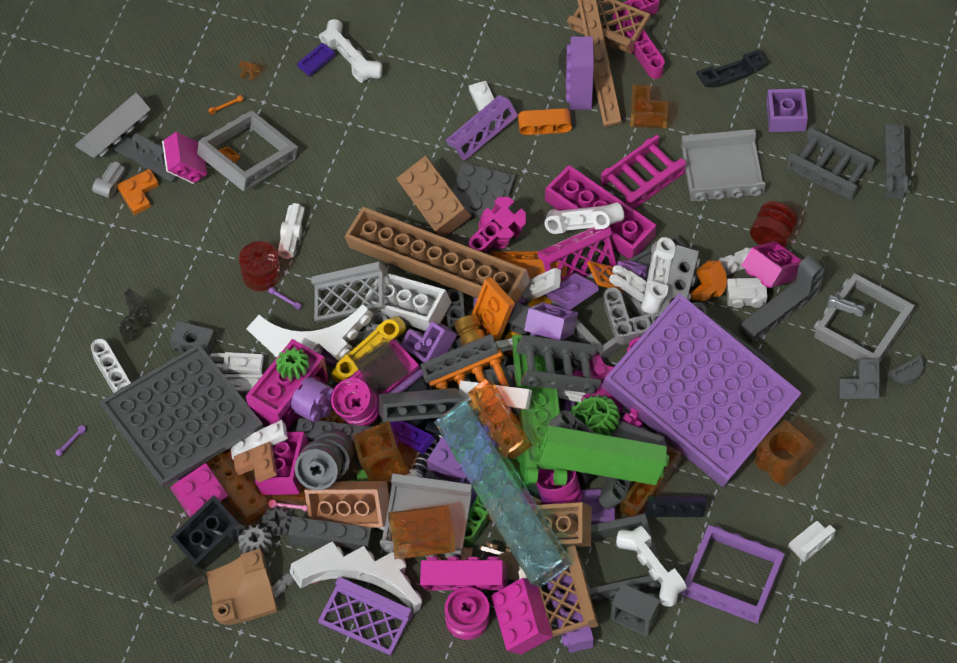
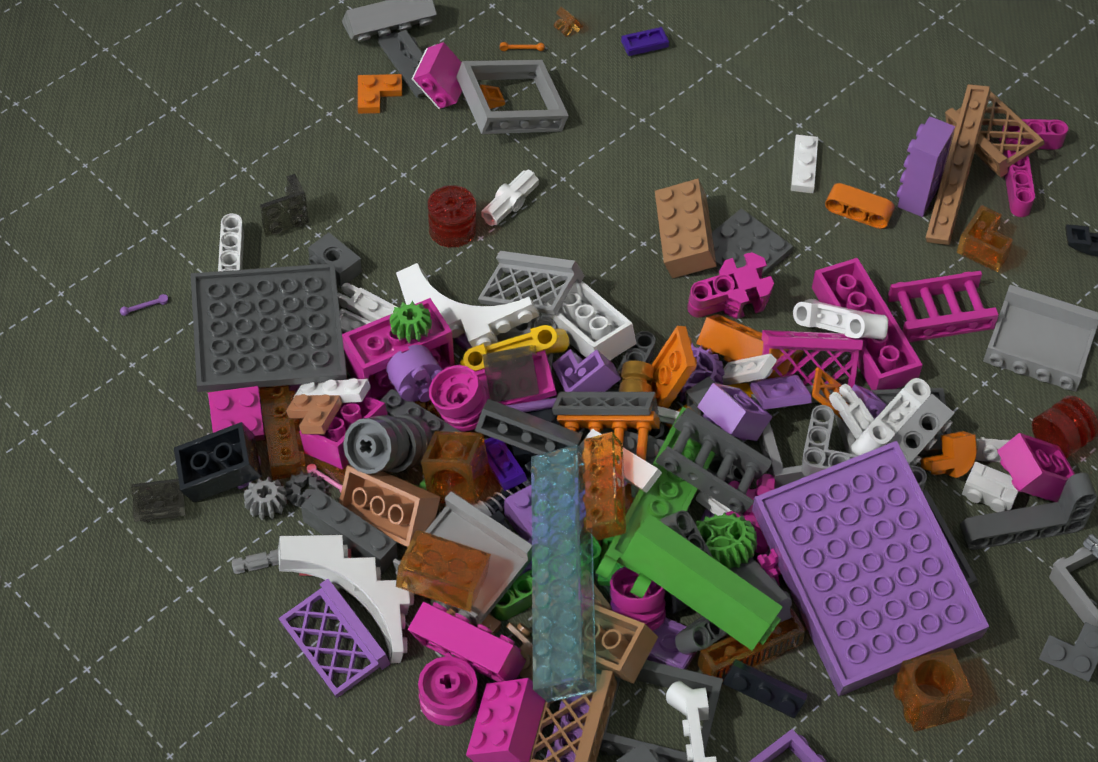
camera: 25 degrees right, 5 degrees down
(108, 182) = (347, 71): light grey piece -> none
(242, 589) = (217, 543): medium nougat slope -> none
(272, 290) = (453, 250): medium lavender hinge -> none
(361, 68) = (687, 68): white plate -> none
(432, 255) = (646, 287): medium nougat brick -> none
(480, 121) = (781, 173): medium lavender fence -> none

